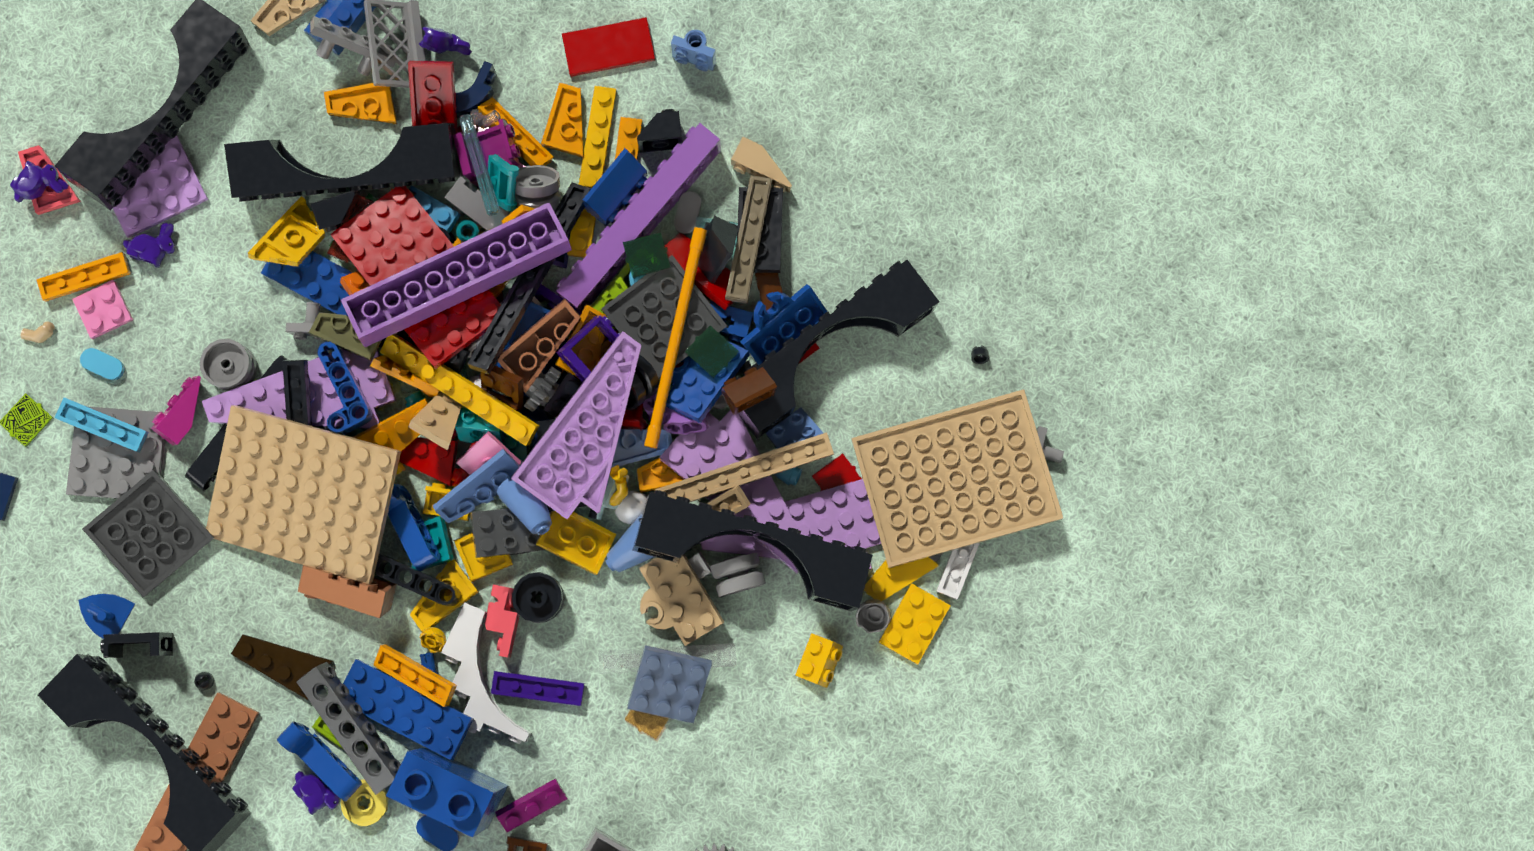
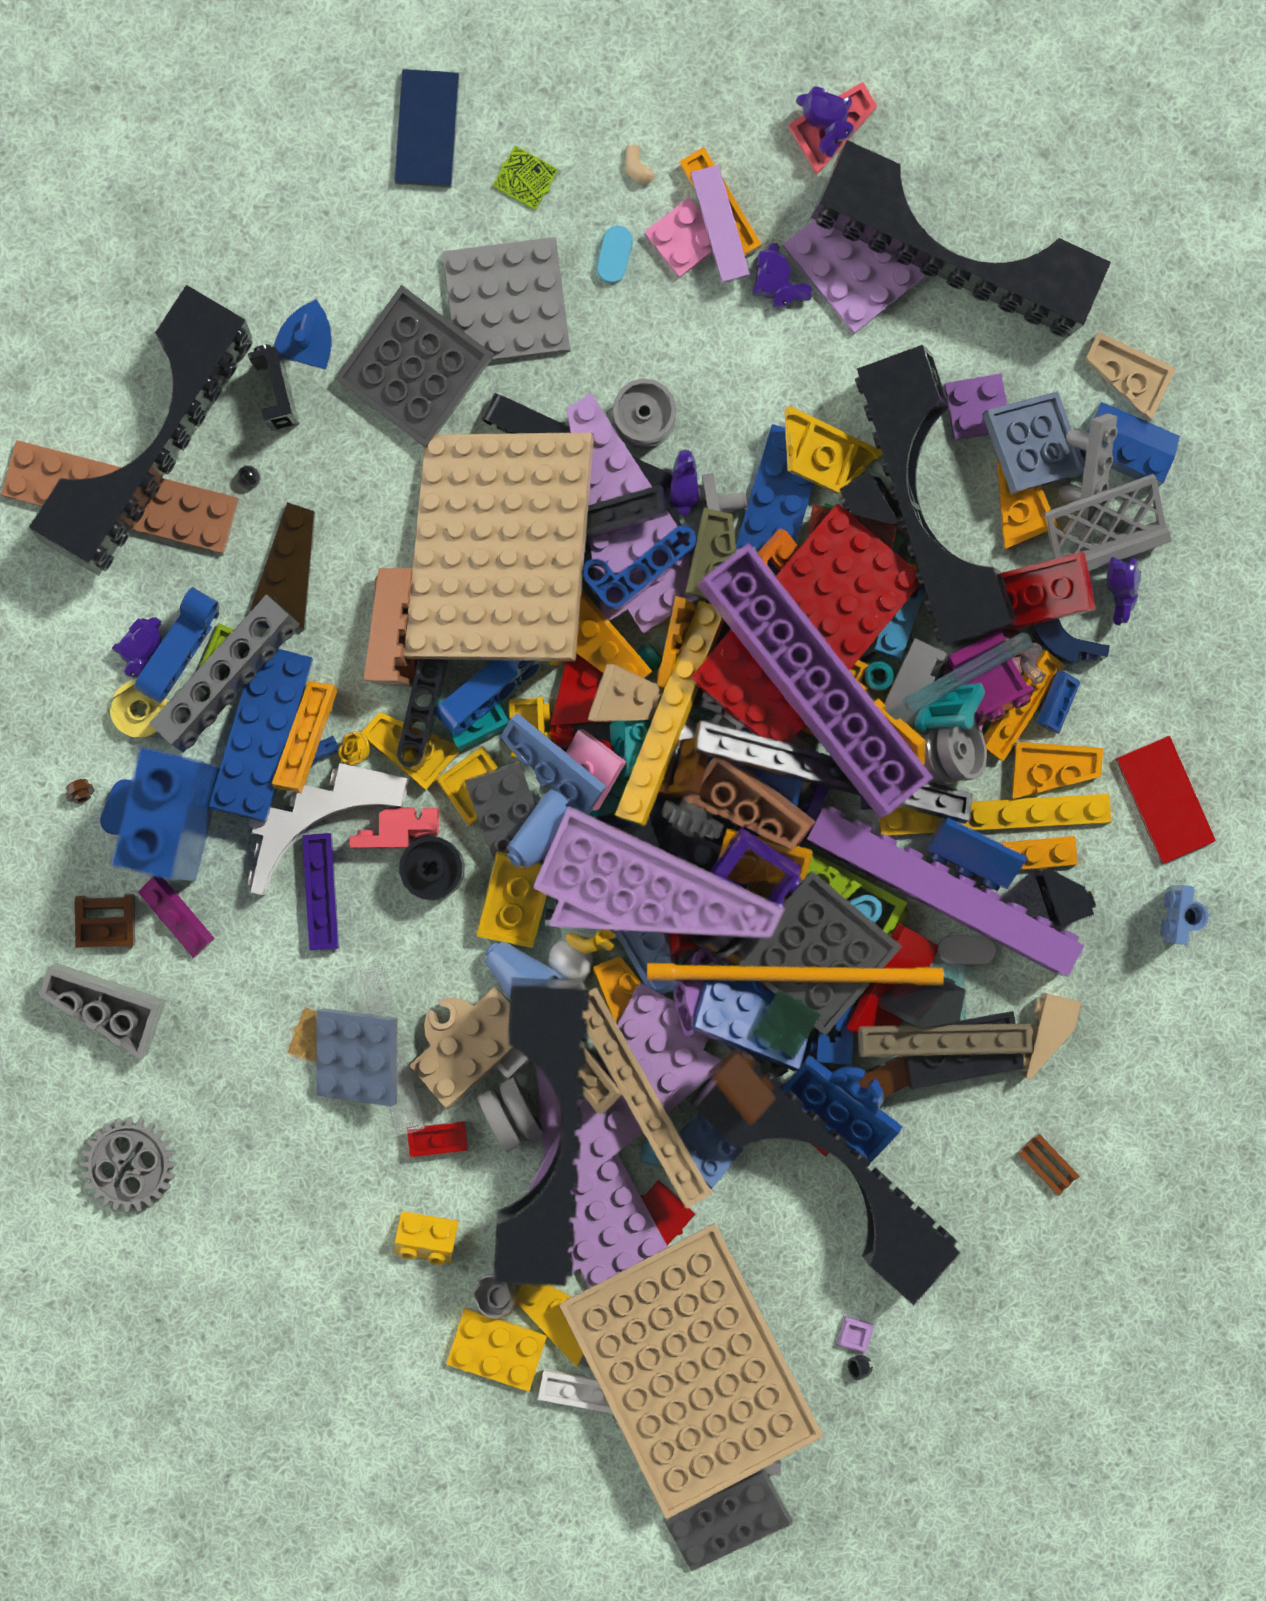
camera: 85 degrees right, 5 degrees up
(98, 279) = (720, 224): none -> lavender tile
(101, 425) = (536, 275): medium azure plate -> none
(179, 416) = (567, 367): dark pink slope -> none
(285, 119) = (969, 400): none -> medium lavender plate
(289, 346) = (684, 482): none -> dark purple animal
(320, 83) = (1032, 442): none -> sand blue plate
(518, 107) = (1058, 701): none -> blue plate
(646, 255) = (894, 914): clear green piece -> none
(746, 636) = (438, 1139): none -> red plate
(873, 177) = (1066, 1182): none -> dark orange tile
(955, 353) = (855, 1334): none -> lavender tile
(1074, 474) = (729, 1520): none -> dark grey plate

